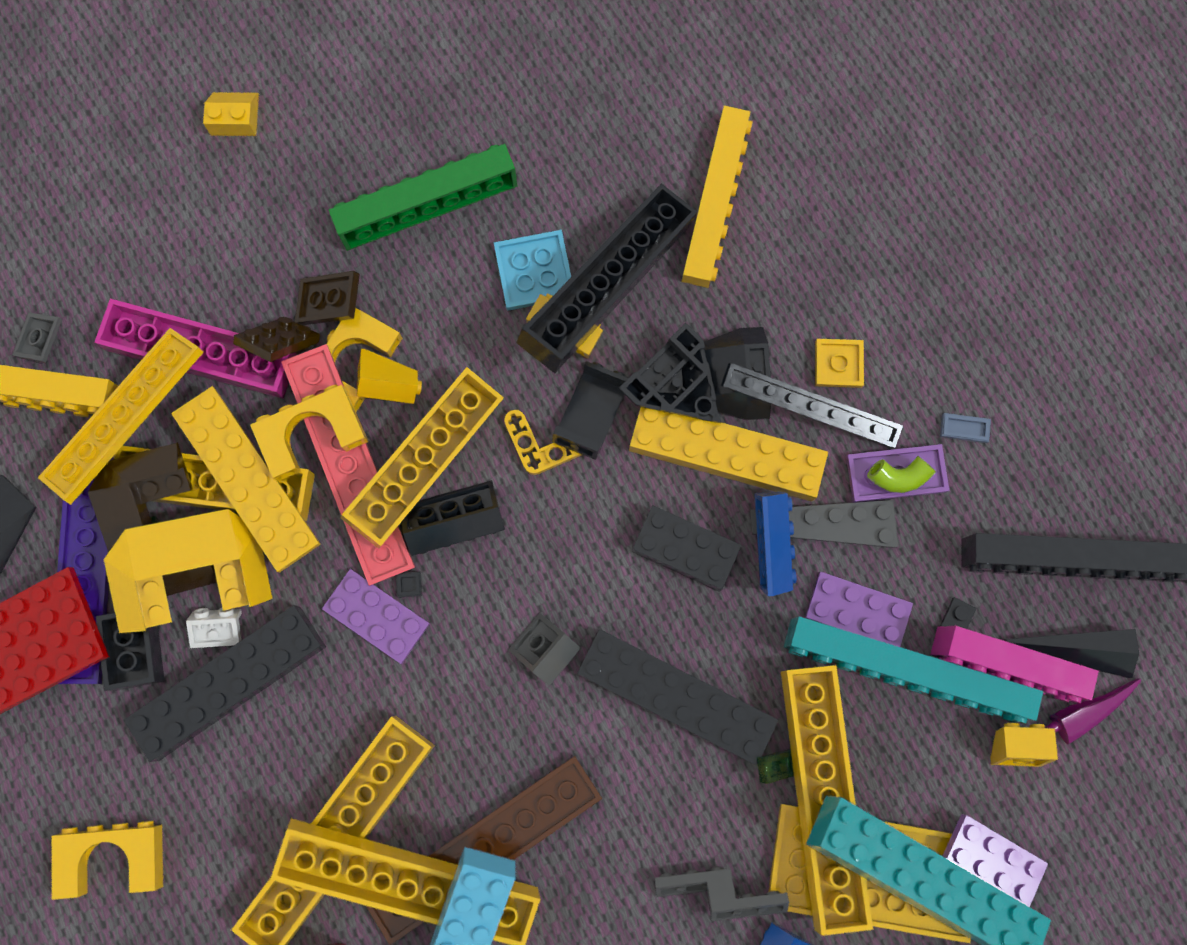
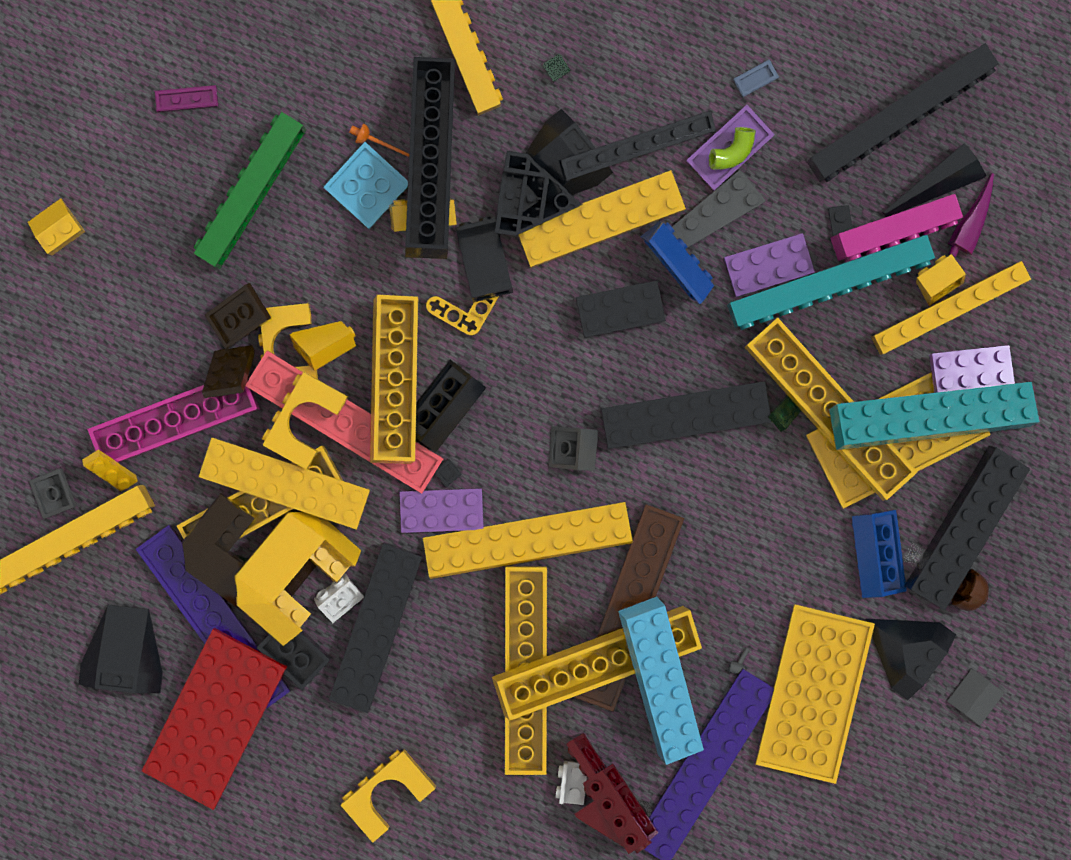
camera: 35 degrees left, 10 degrees up
(98, 349) = (109, 470): none -> yellow plate
(120, 416) = (167, 502): yellow plate -> none
(433, 86) = (186, 98): none -> magenta tile
(435, 706) = (527, 540): none -> yellow plate
(563, 223) = (363, 134): none -> orange sword
(721, 894) = (806, 522): dark grey bracket -> none
(784, 288) = (556, 68): none -> clear green plate
(839, 363) = (634, 96): yellow plate -> none
(1014, 782) = (951, 308): none -> yellow brick

